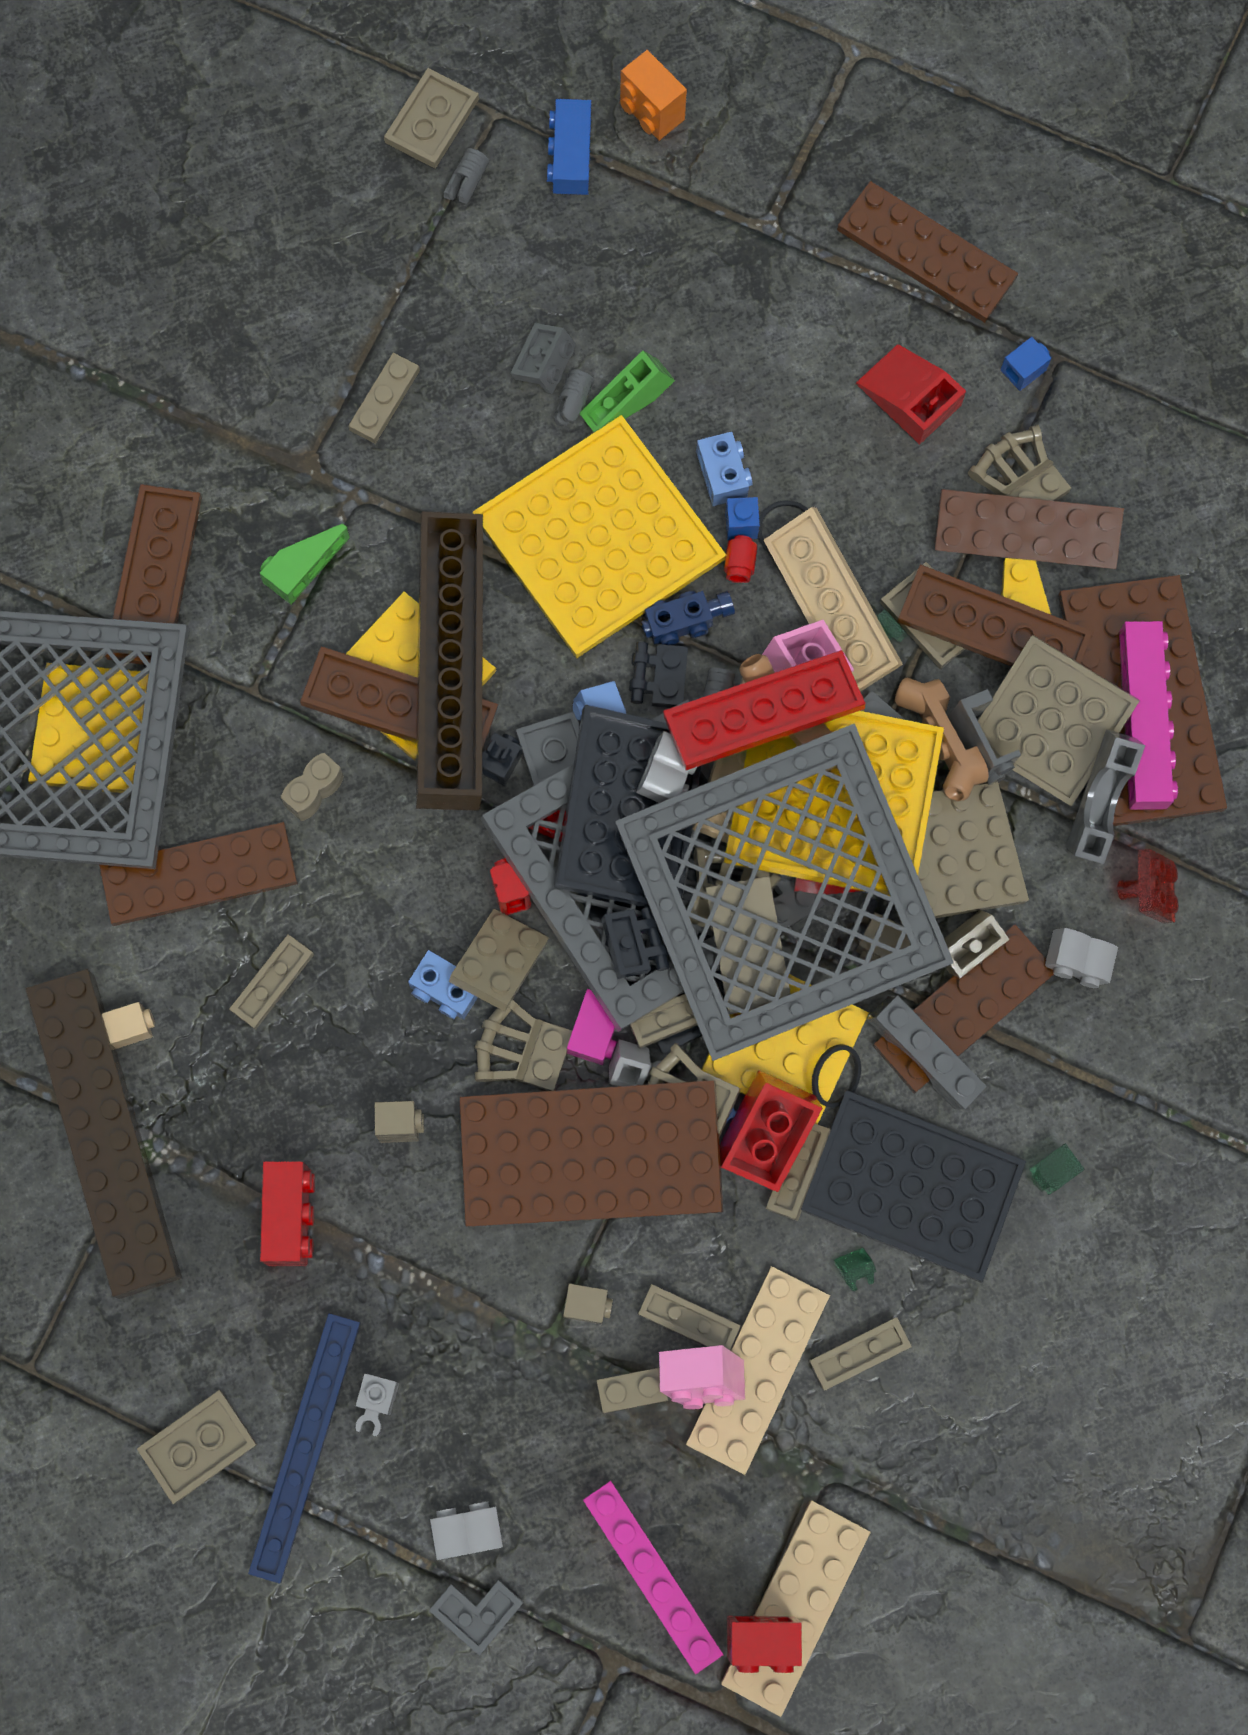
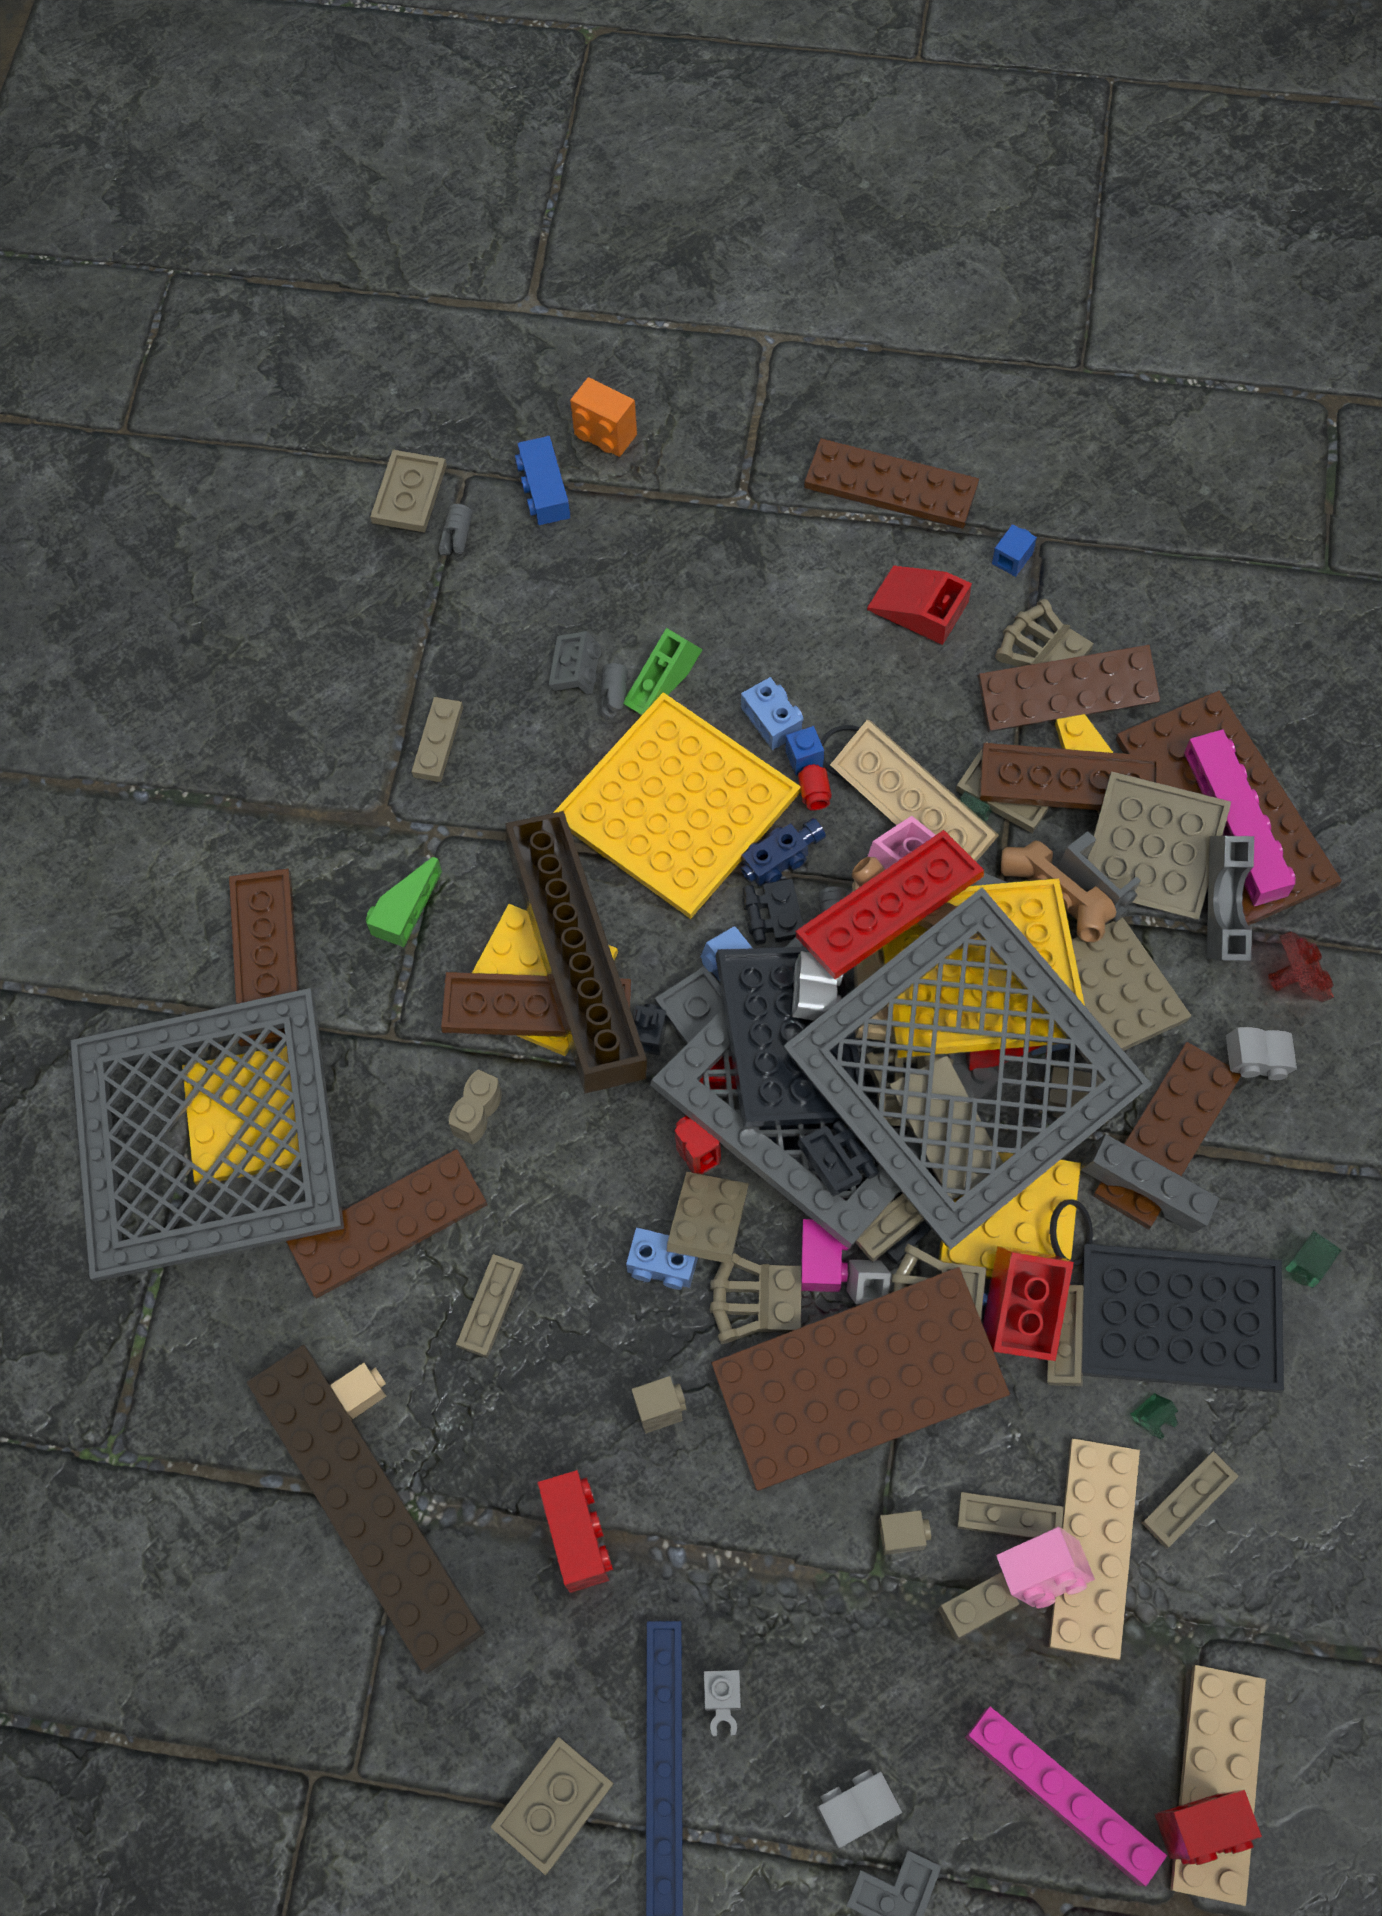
camera: 10 degrees left, 10 degrees down
(973, 942) = (1159, 1063): dark tan brick -> none

